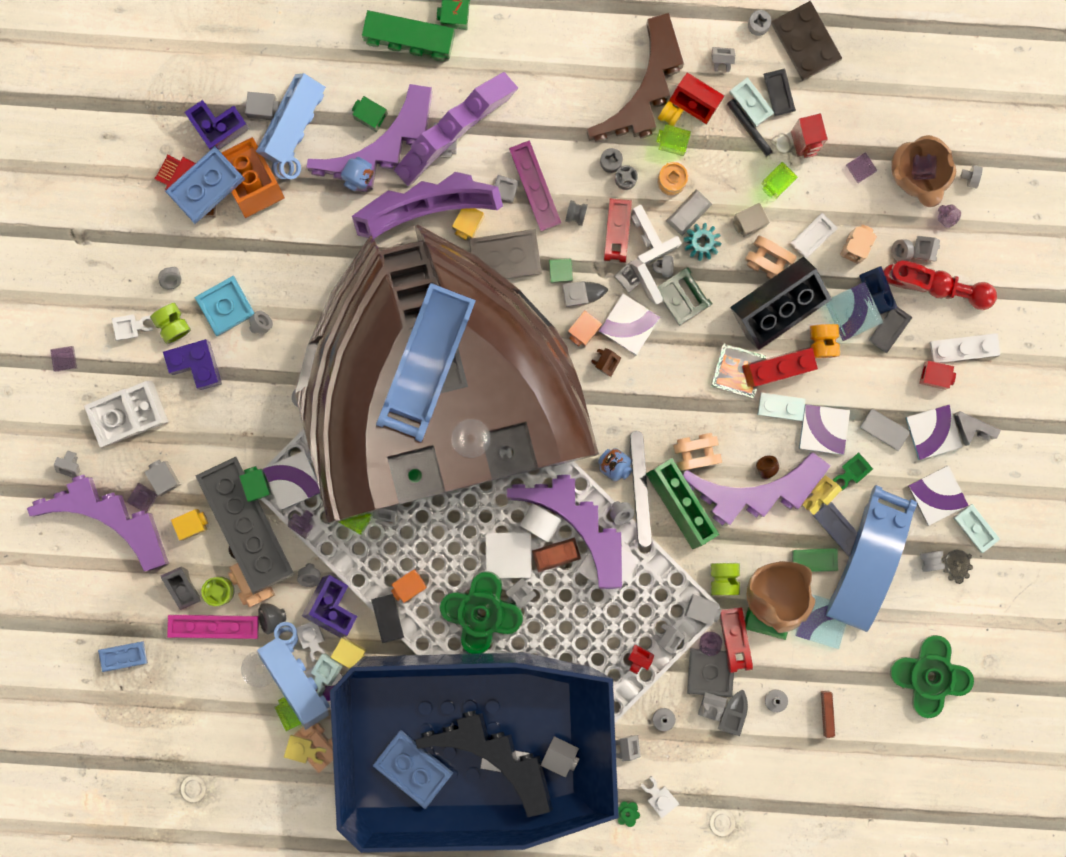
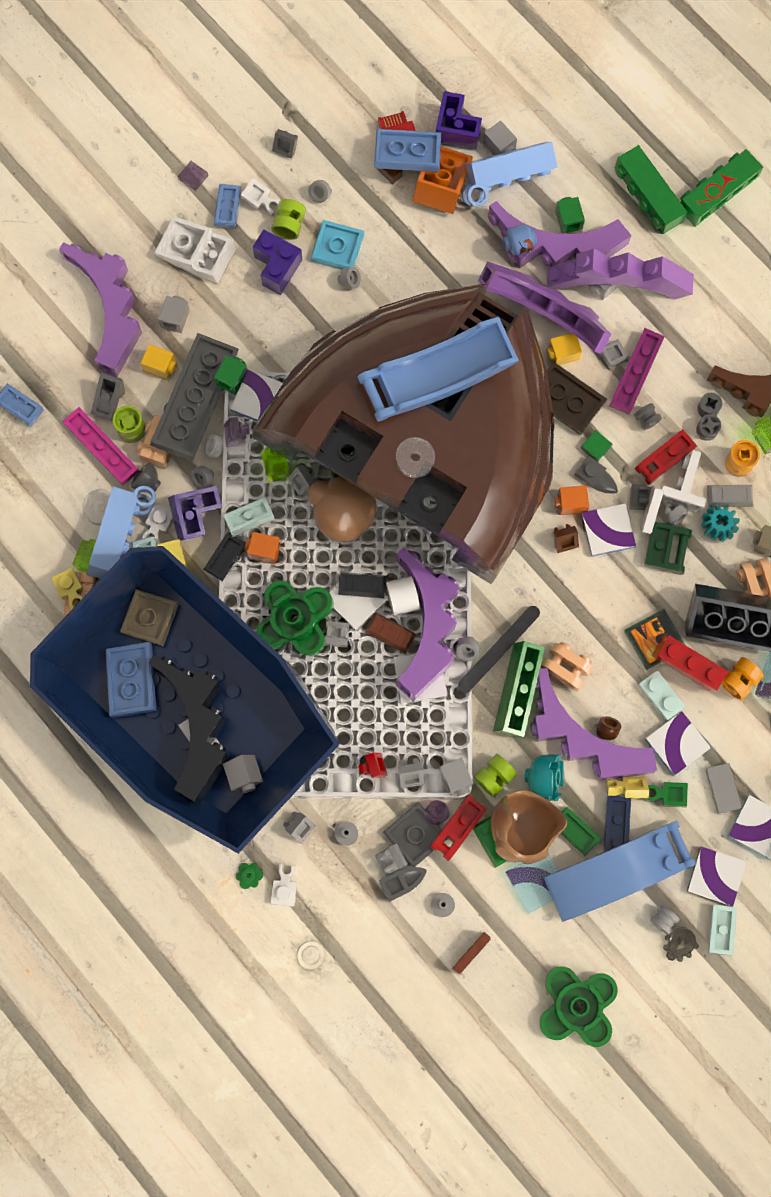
camera: 45 degrees right, 10 degrees down
(67, 465) = (120, 243): light grey tile -> none
(106, 266) = (285, 143): none -> dark grey tile
(114, 357) = (227, 206): none -> medium blue plate
(142, 498) = (147, 315): clear purple tile -> none
(293, 545) = (213, 446): none -> white tile
(375, 574) = (249, 516): none -> light aqua plate
(380, 714) = (149, 617): none -> dark tan tile
(437, 513) = (341, 509): none -> medium nougat piece
(504, 542) = (362, 585): none -> black tile
(615, 464) = (498, 615): medium blue head -> none
(759, 545) = (545, 776): none -> teal cylinder

